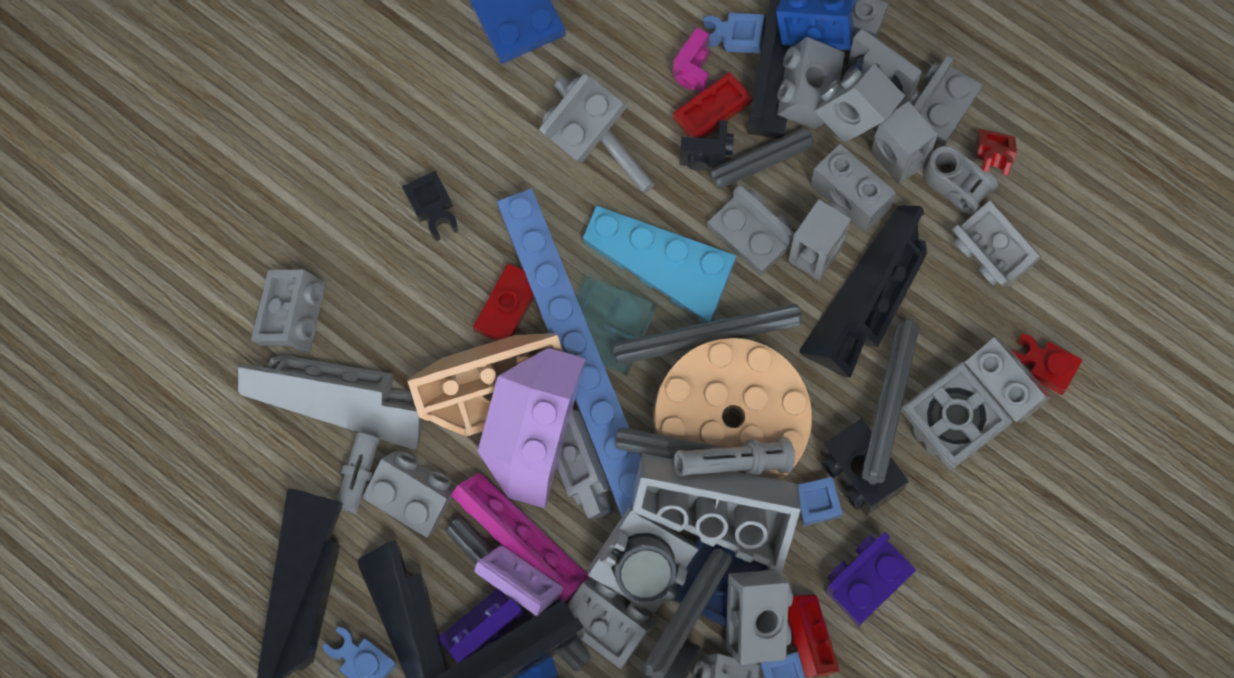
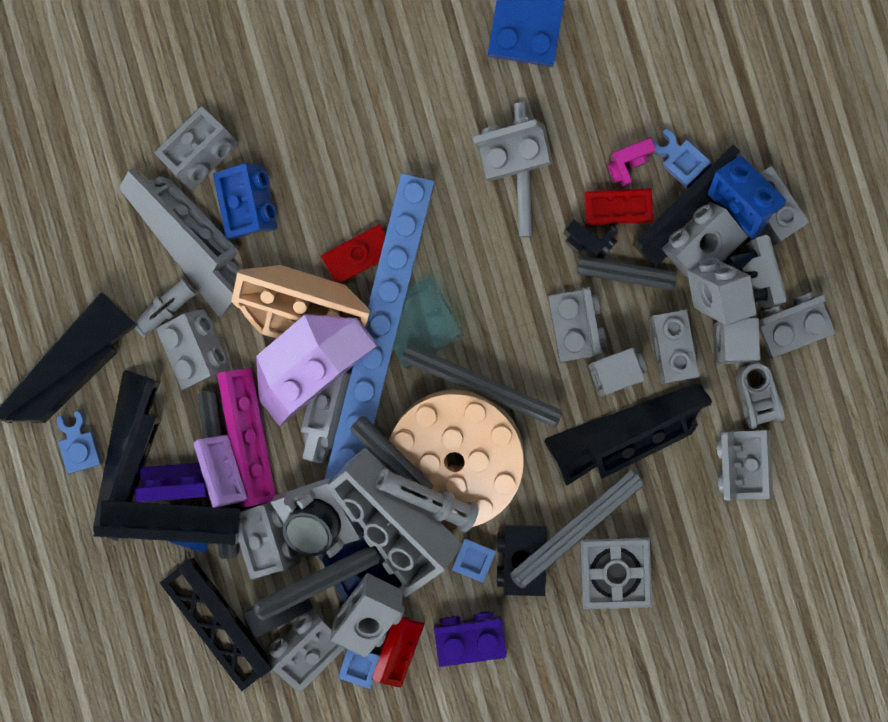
camera: 35 degrees right, 15 degrees up
(366, 325) = (245, 200): none -> blue bracket
(430, 201) = (356, 133): black plate -> none
(674, 265) = (499, 308): medium azure wing -> none
(996, 150) = (803, 393): red plate -> none
(1008, 379) = (674, 573): light grey brick -> none
(1050, 365) = (718, 580): red plate -> none

